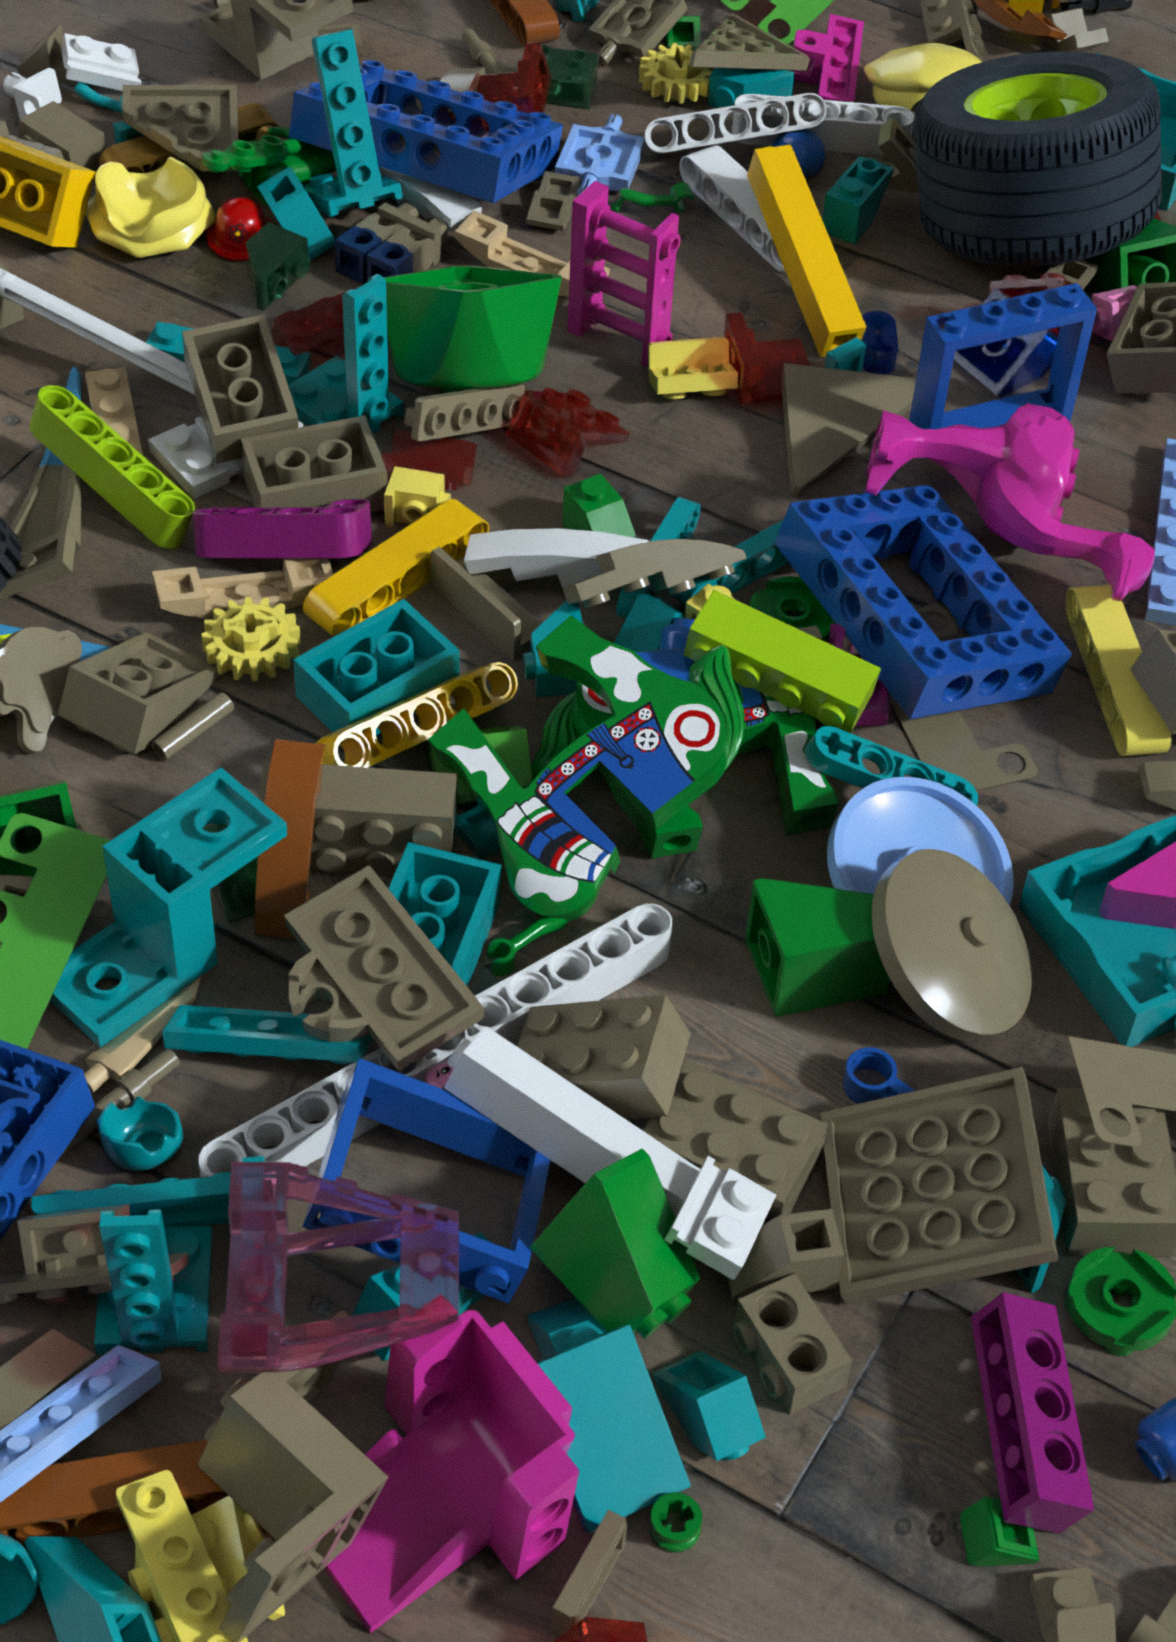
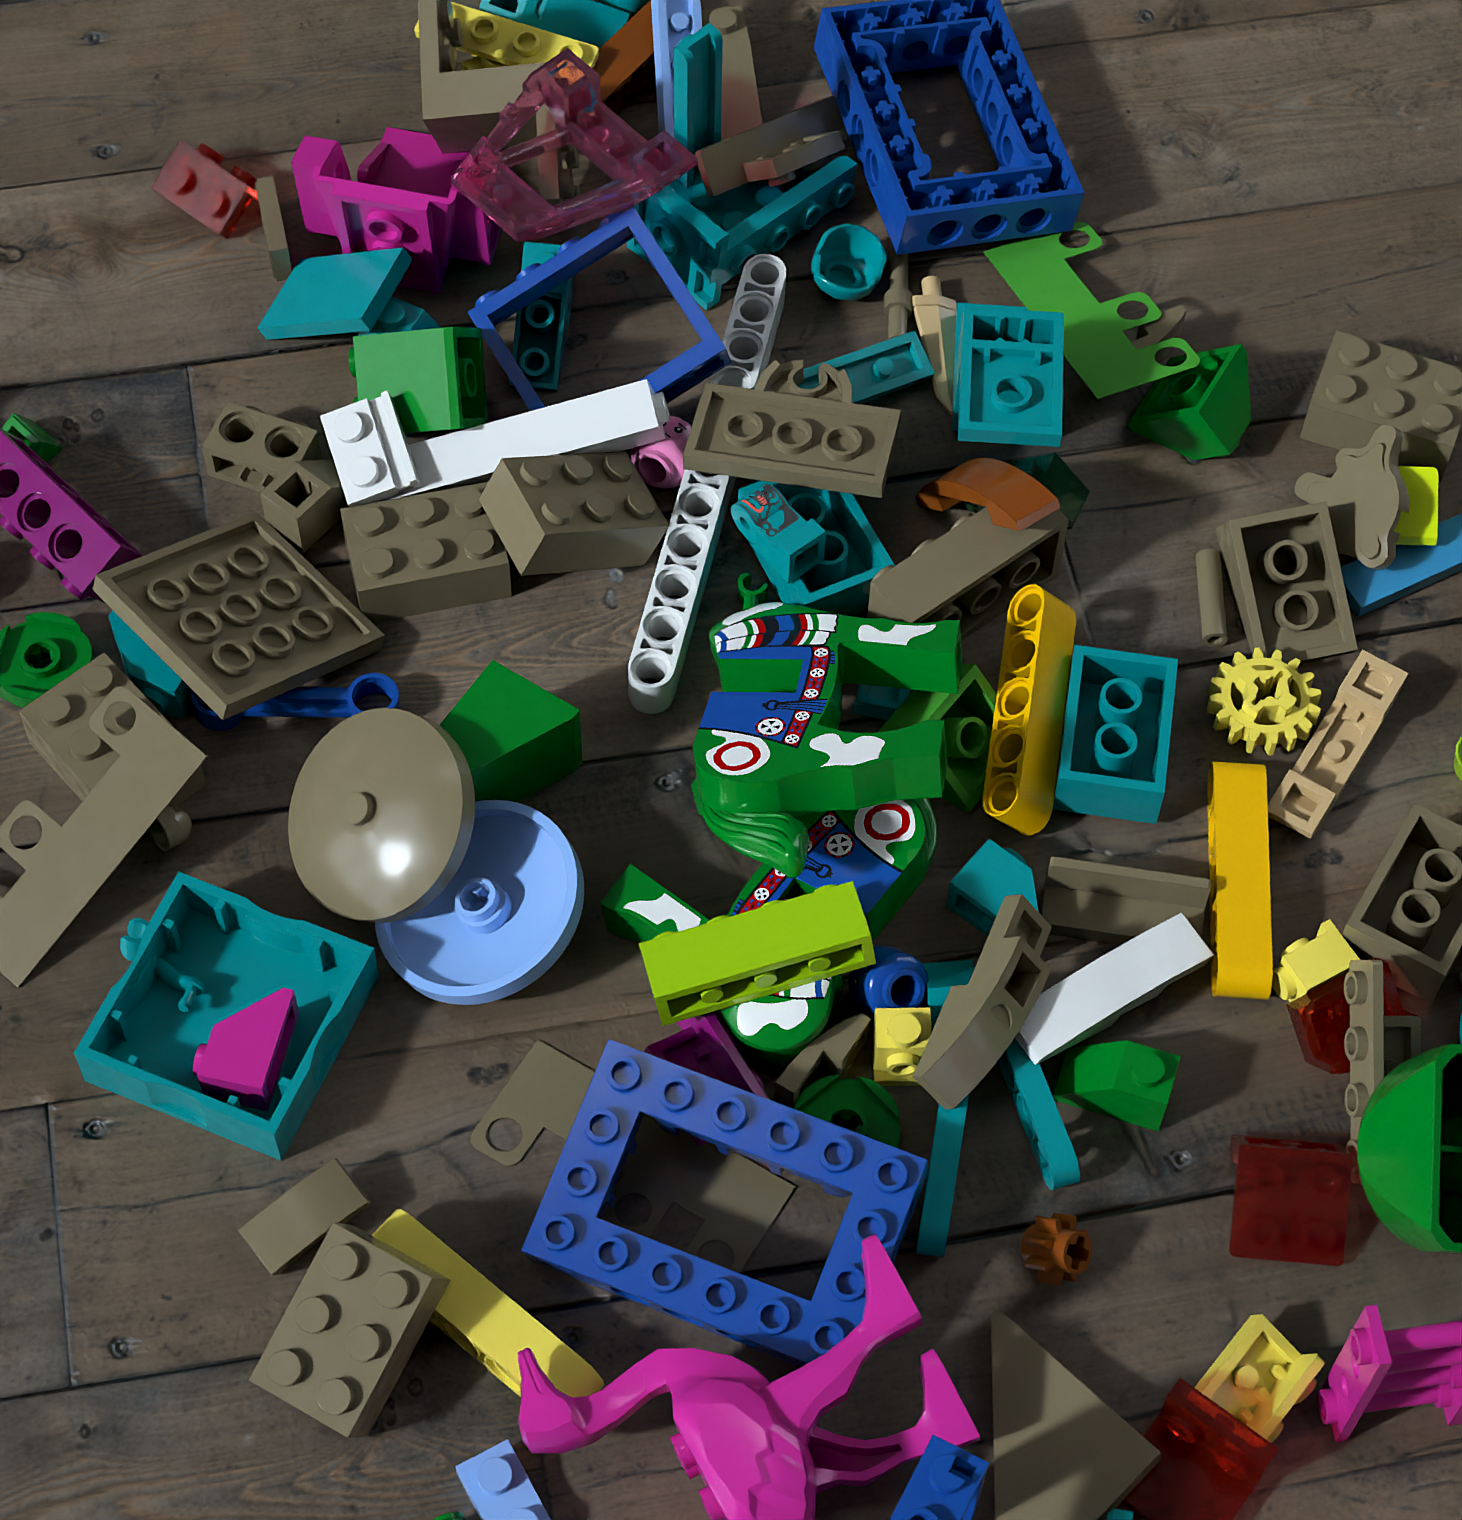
camera: 140 degrees right, 10 degrees up
(284, 532) = (1352, 813): magenta beam -> none
(473, 900) = (779, 532): none -> teal leg
(687, 1508) = (248, 291): green bush -> none
(712, 1405) = (286, 373): teal slope -> none
(733, 480) = (1056, 1248): none -> dark orange gear
(832, 747) = (585, 984): teal beam -> none

